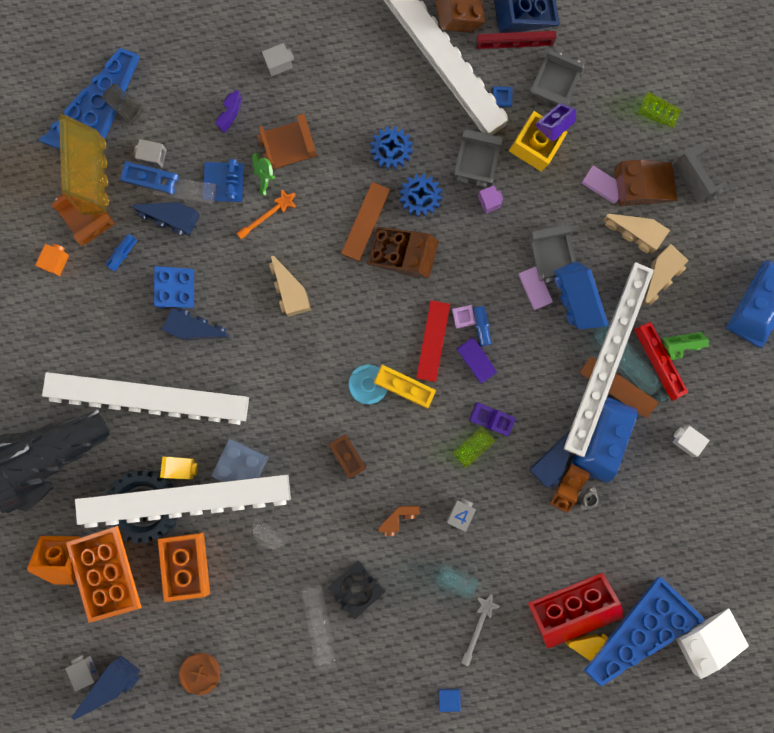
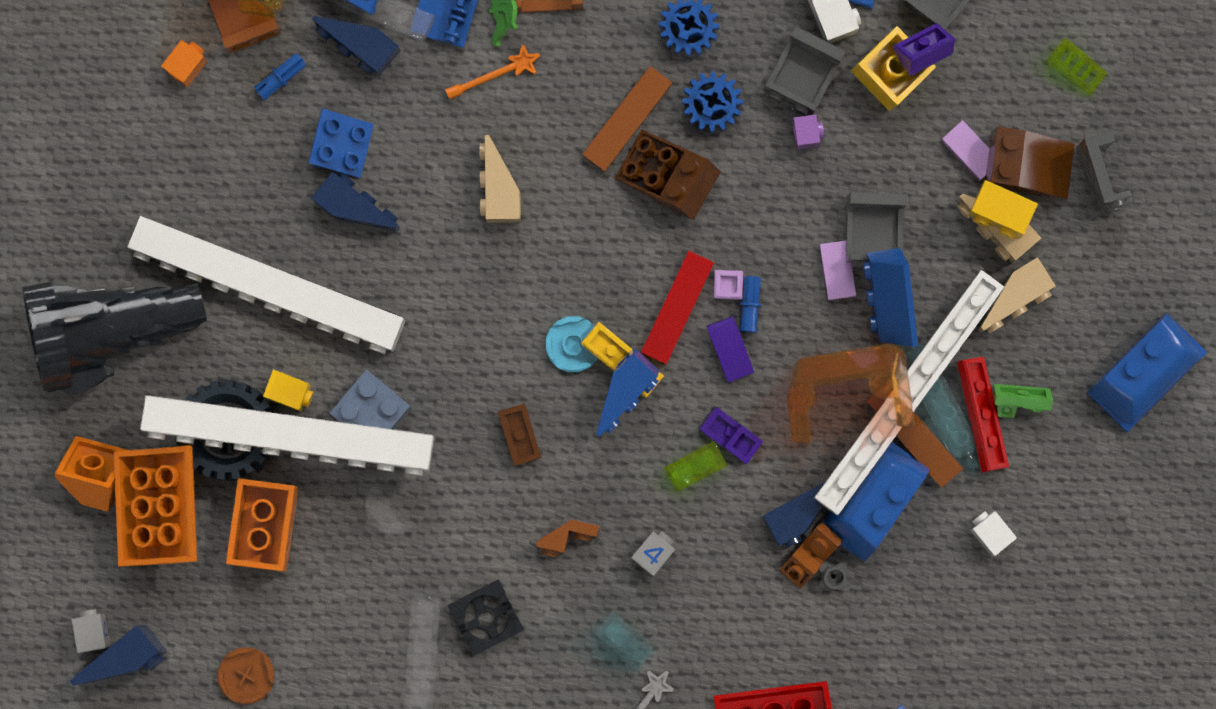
camera: 15 degrees right, 0 degrees up
(413, 401) = (628, 381): none -> blue slope
(584, 343) = (881, 364): none -> clear orange windscreen
(640, 217) = (1002, 210): none -> yellow brick

